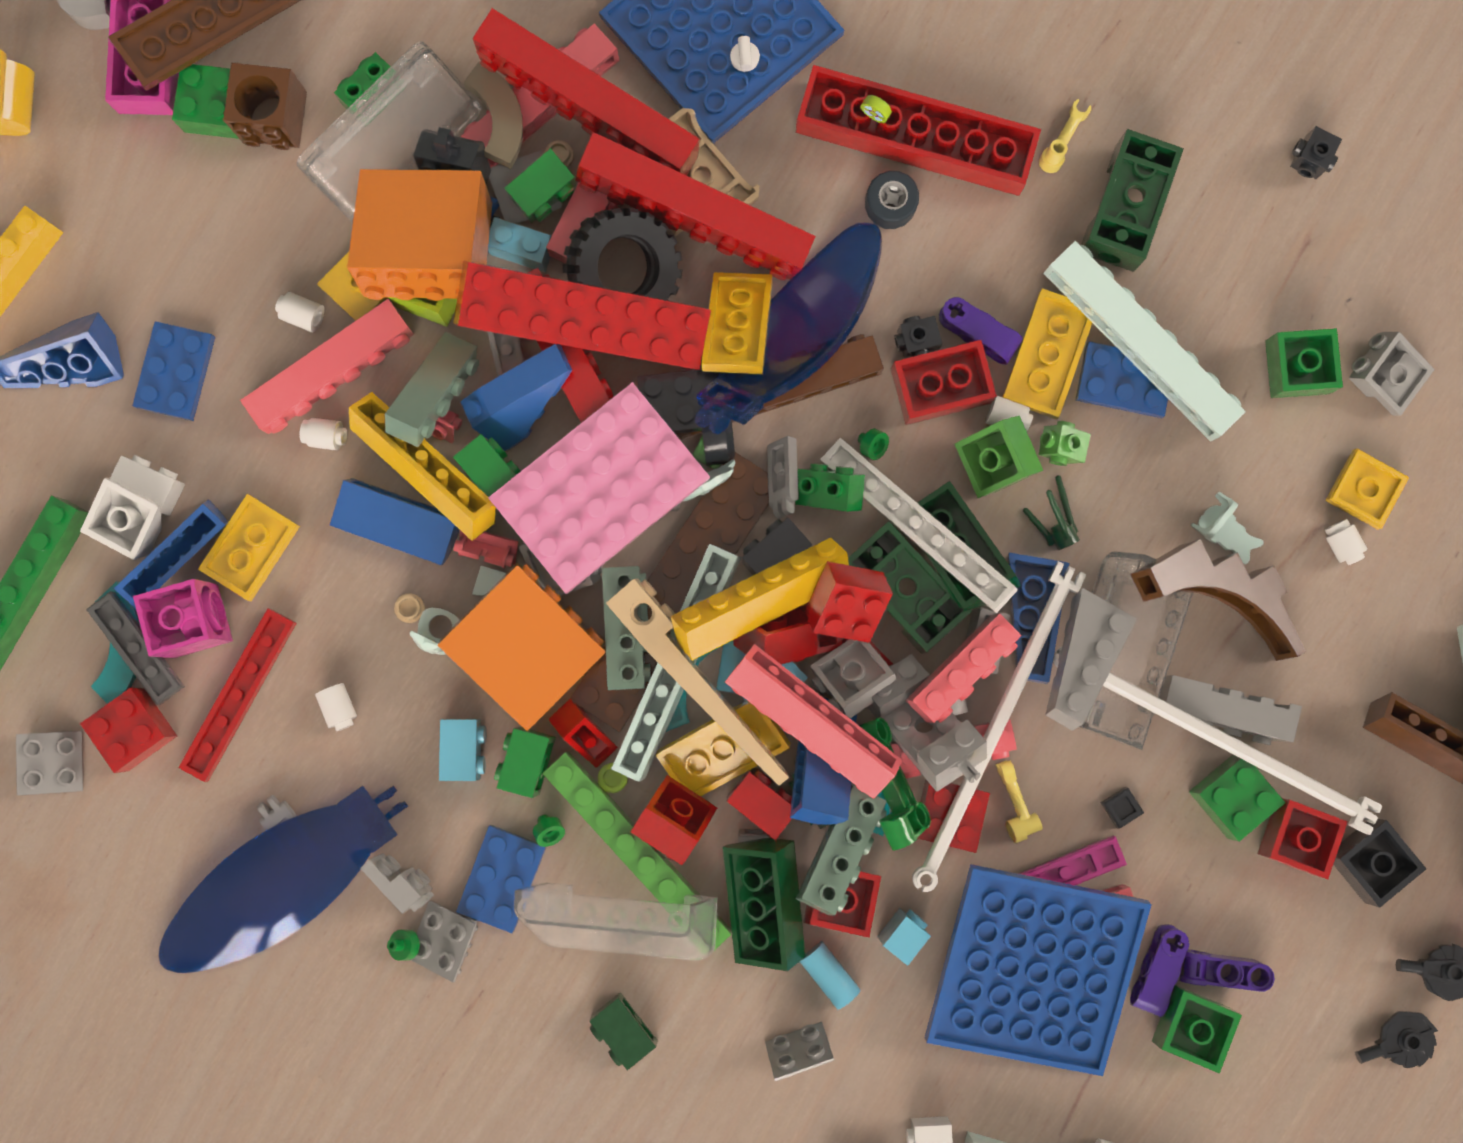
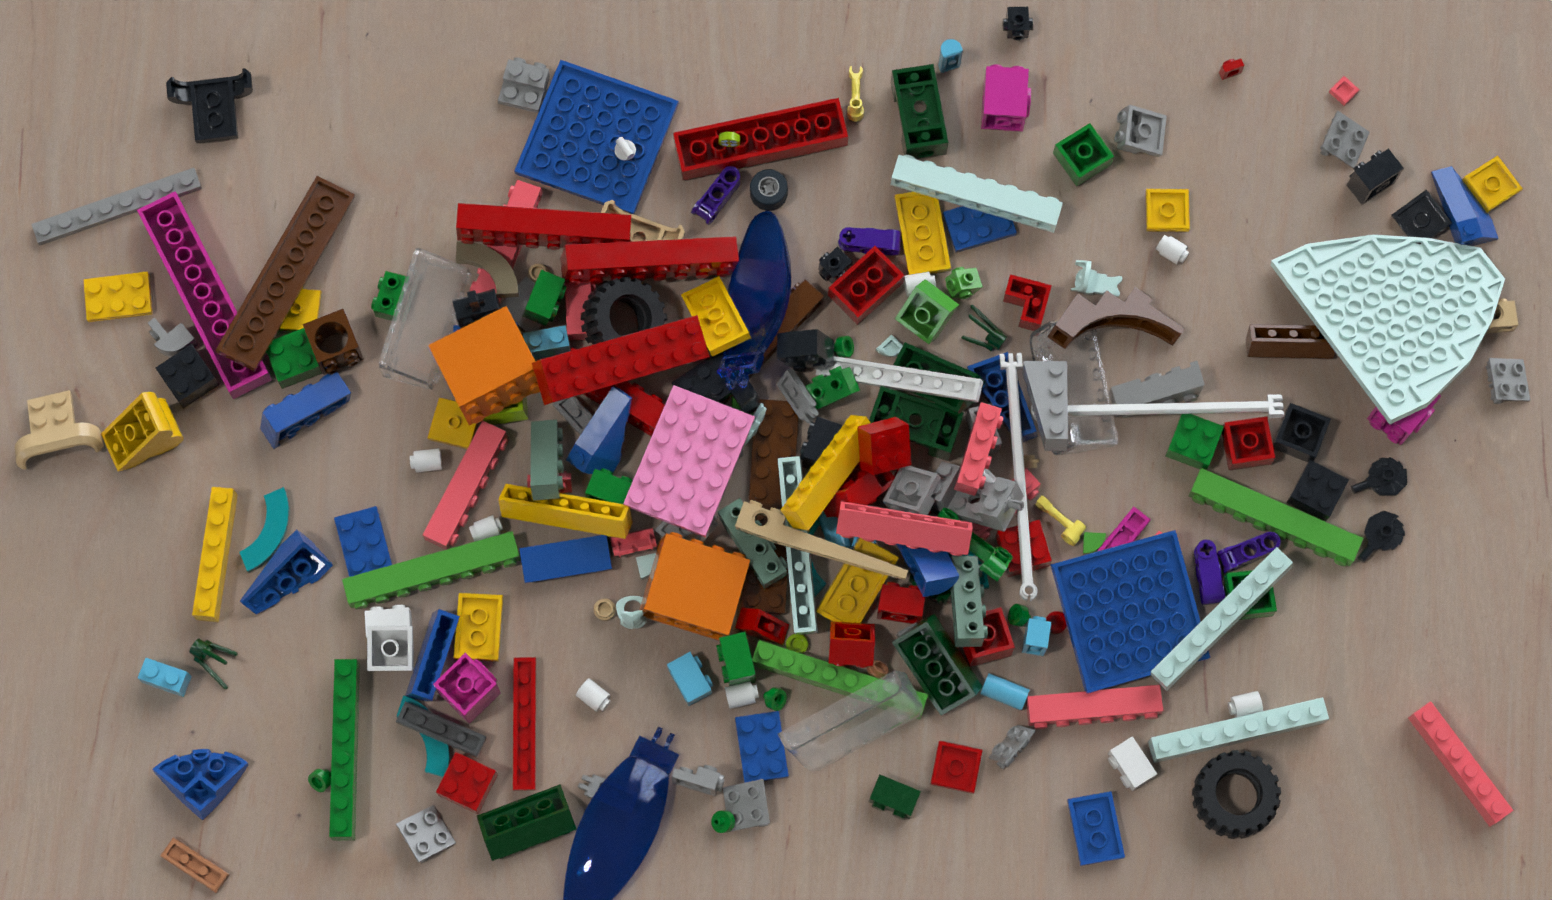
camera: 30 degrees left, 10 degrees down
(74, 55) = (187, 376): none -> black brick
(77, 299) = (272, 532): none -> teal tile
(172, 815) = (526, 822): none -> dark green slope
(188, 168) = (303, 408): none -> blue wedge
(229, 447) = (431, 570): none -> bright green brick
(259, 46) = (304, 310): none -> yellow plate
(510, 805) = (741, 694): none -> white brick
(692, 867) = (878, 669): none -> nougat plate
(718, 1035) = (956, 767): none -> red plate
(814, 184) = (708, 206): none -> dark purple piece
(822, 424) = (805, 349): none -> black brick
(898, 892) = (1018, 615): none -> green tile
(930, 474) = (890, 347): none -> light aqua tile
(939, 924) = (1057, 621): none -> red tile
(939, 1065) = (1097, 705): none -> coral brick
(1021, 711) = (1030, 461): none -> tan plate
(1039, 850) = (1092, 542): none -> bright green tile
(1122, 807) = (1129, 487): black tile -> none
(1138, 508) = (1029, 295): none -> red brick
(1147, 1050) = (1221, 619): none -> light aqua brick
(1209, 149) = (950, 55): none -> medium azure brick
(1248, 240) = (1005, 98): none -> dark pink brick
(1283, 947) = (1275, 517): none -> bright green brick
(1354, 944) = (1317, 491): none -> black brick

